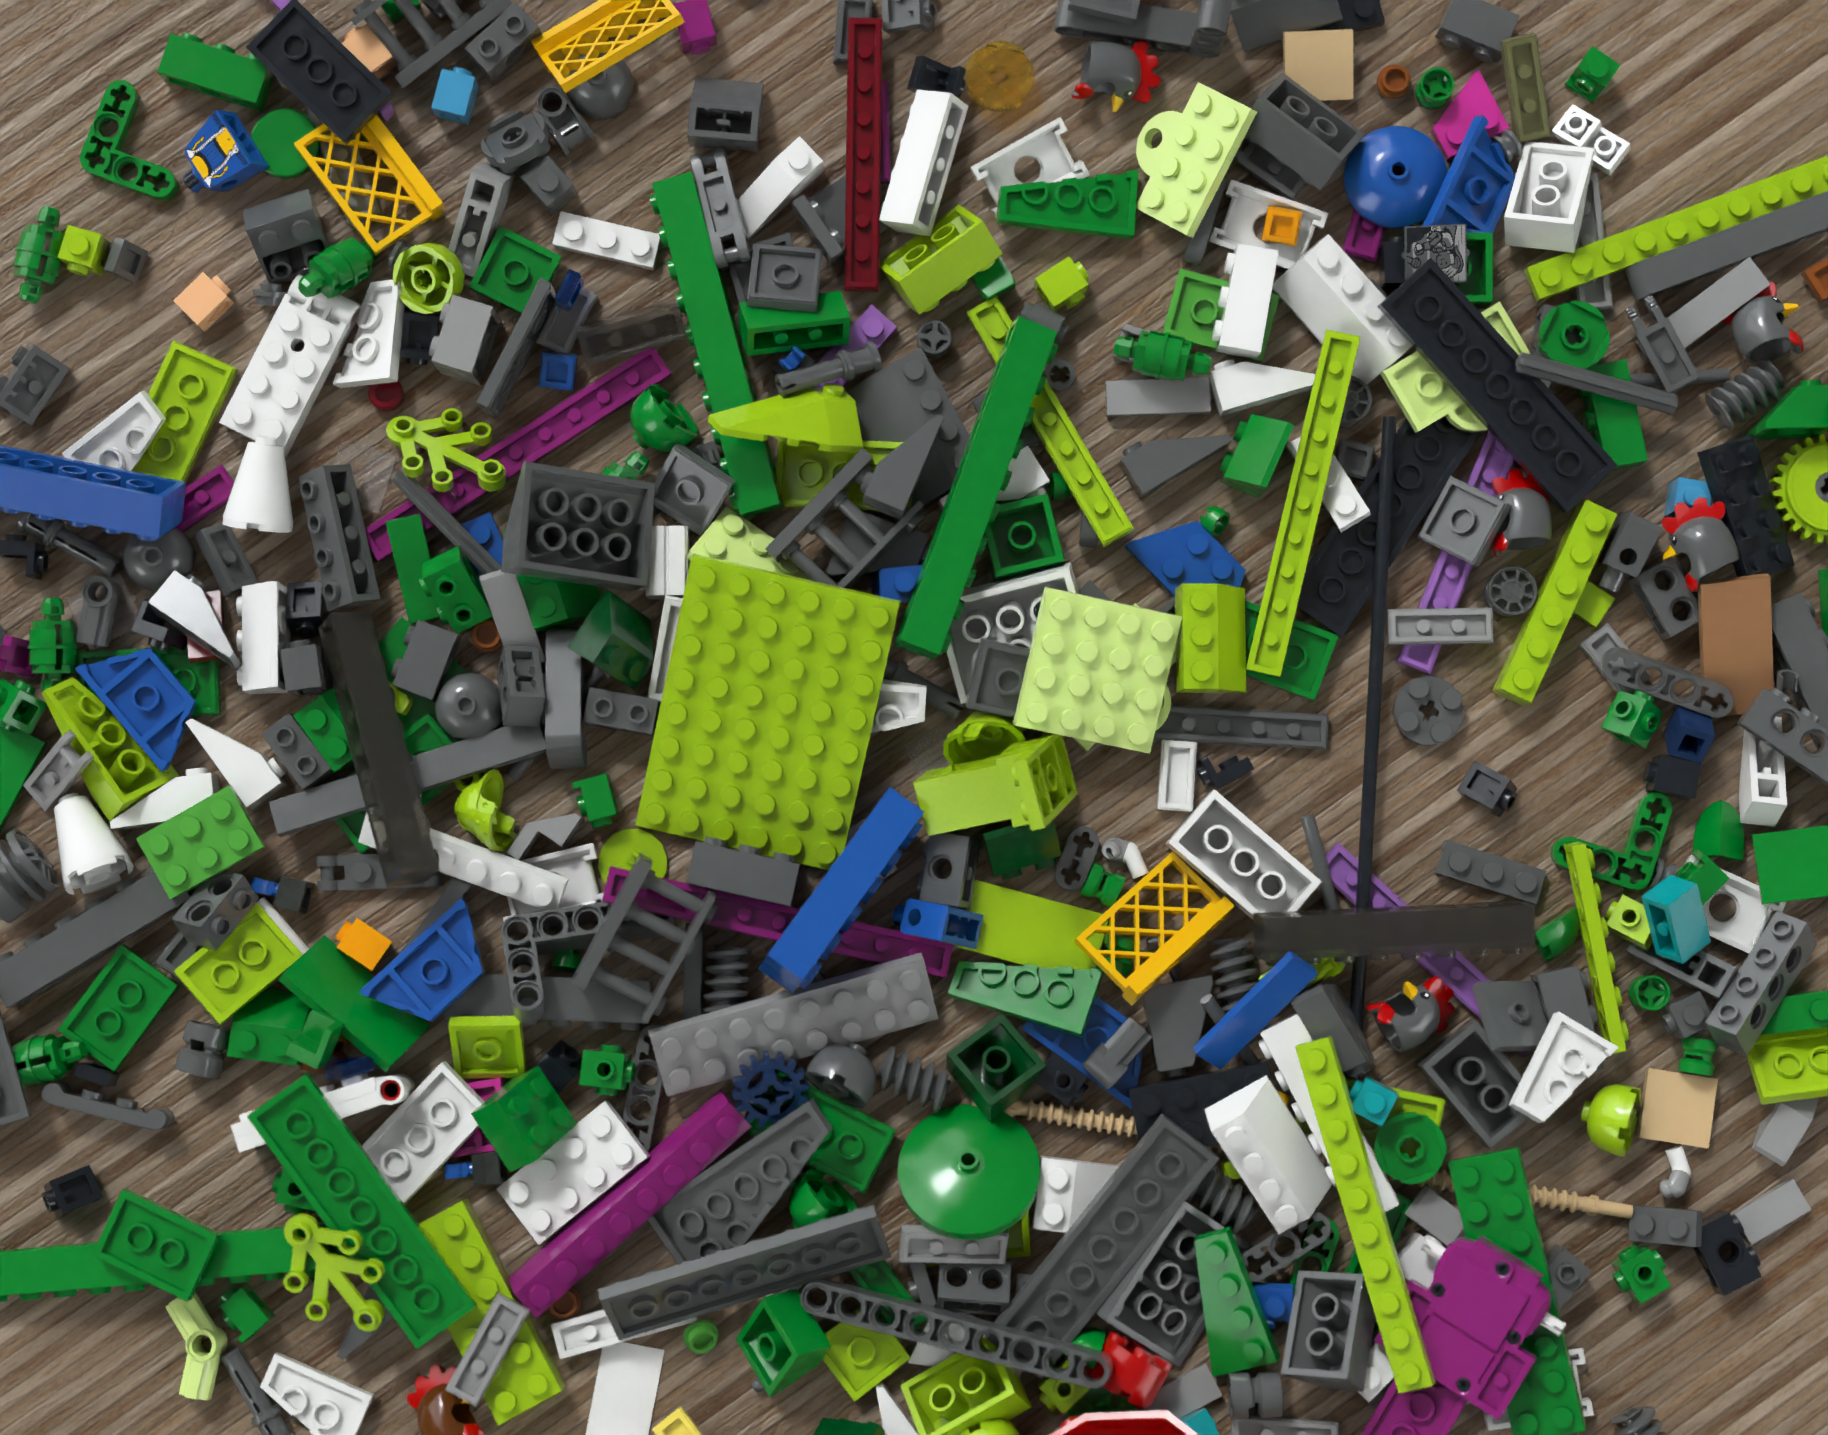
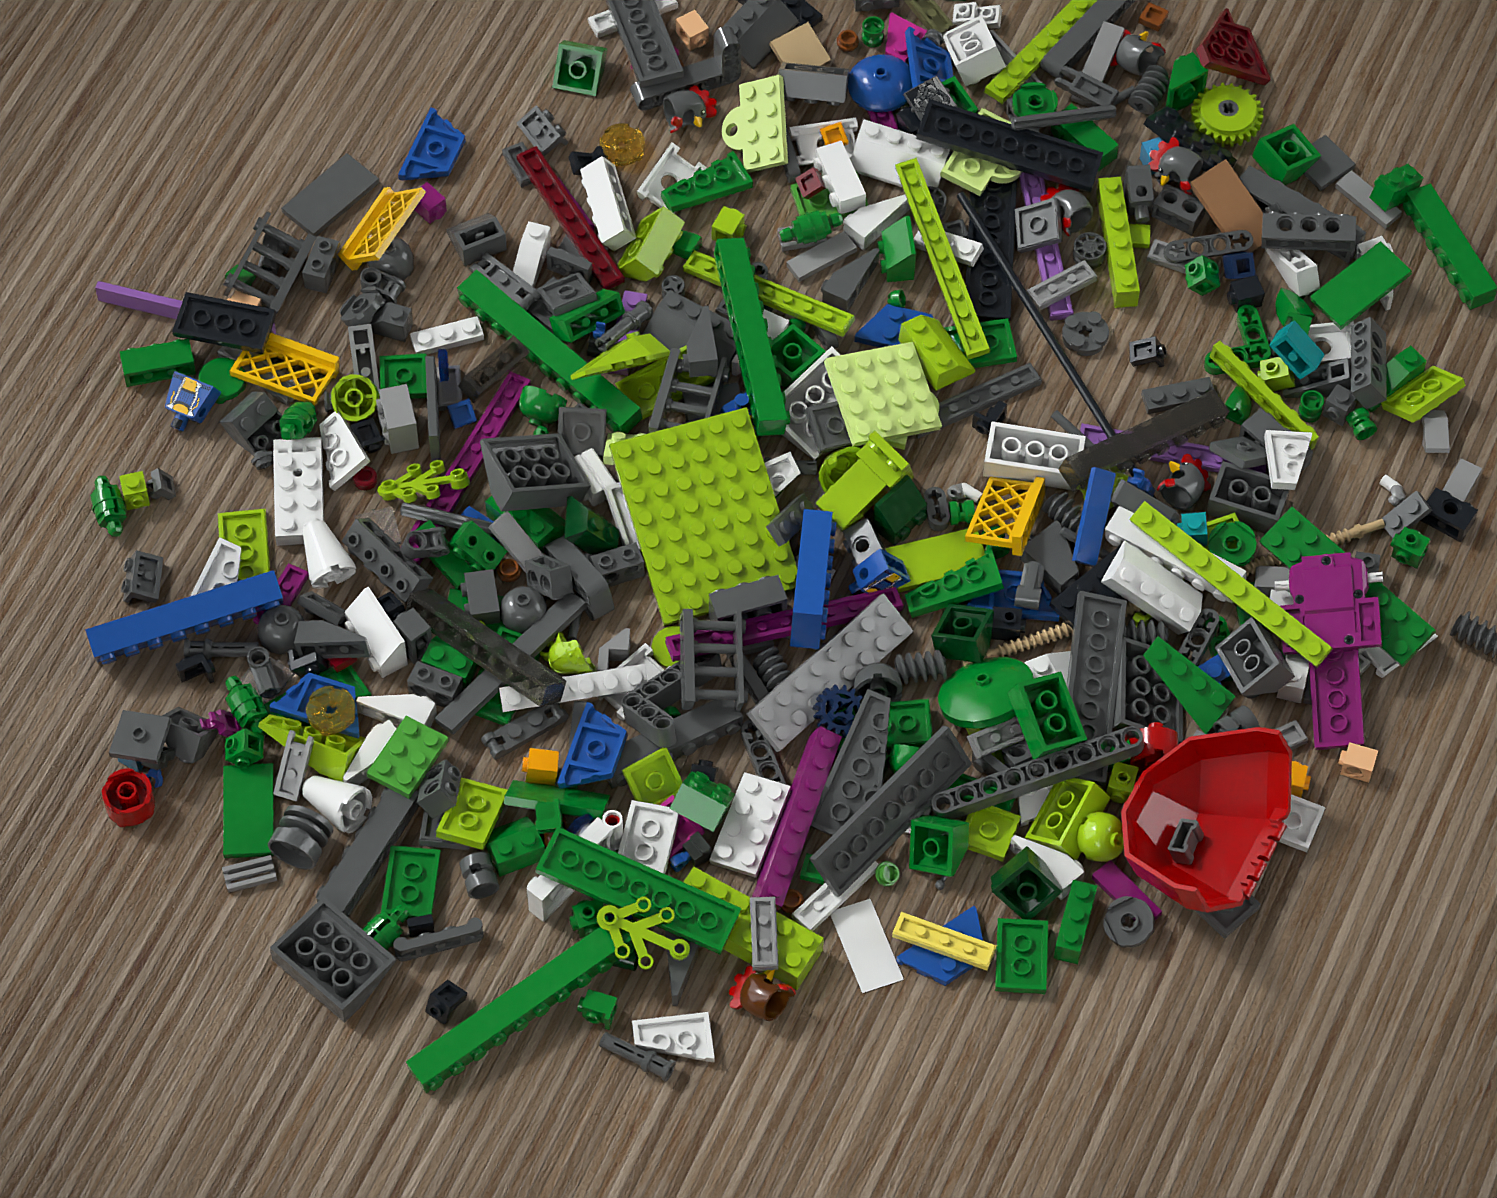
camera: 25 degrees left, 25 degrees down
(114, 157) = (122, 438): green beam -> none
(156, 1244) = (522, 978): green plate -> none
(157, 736) = (334, 722): none -> clear yellow plate
(200, 1365) = (571, 1033): yellowish green piece -> none
(205, 300) = (224, 482): light nougat brick -> none
(289, 893) = (478, 765): pearl dark grey piece -> none
(393, 553) = (430, 543): none -> dark grey piece
(455, 95) = (310, 305): dark azure brick -> none
(595, 1069) = (734, 756): green brick -> none
(596, 800) = (633, 617): green brick -> none
(615, 1270) = (809, 872): none -> green plate
(873, 780) = (789, 520): none -> dark grey plate
(1008, 1276) = (1046, 714): none -> green brick
(1177, 775) = (965, 438): white tile -> none
(1202, 287) = (810, 183): none -> dark red plate
(1265, 168) = (807, 113): dark grey hinge -> none
(1348, 989) = (1141, 482): none -> blue plate
(1612, 1118) = (1335, 477): lime cylinder -> none
(1677, 1108) = (1369, 458): tan tile -> none

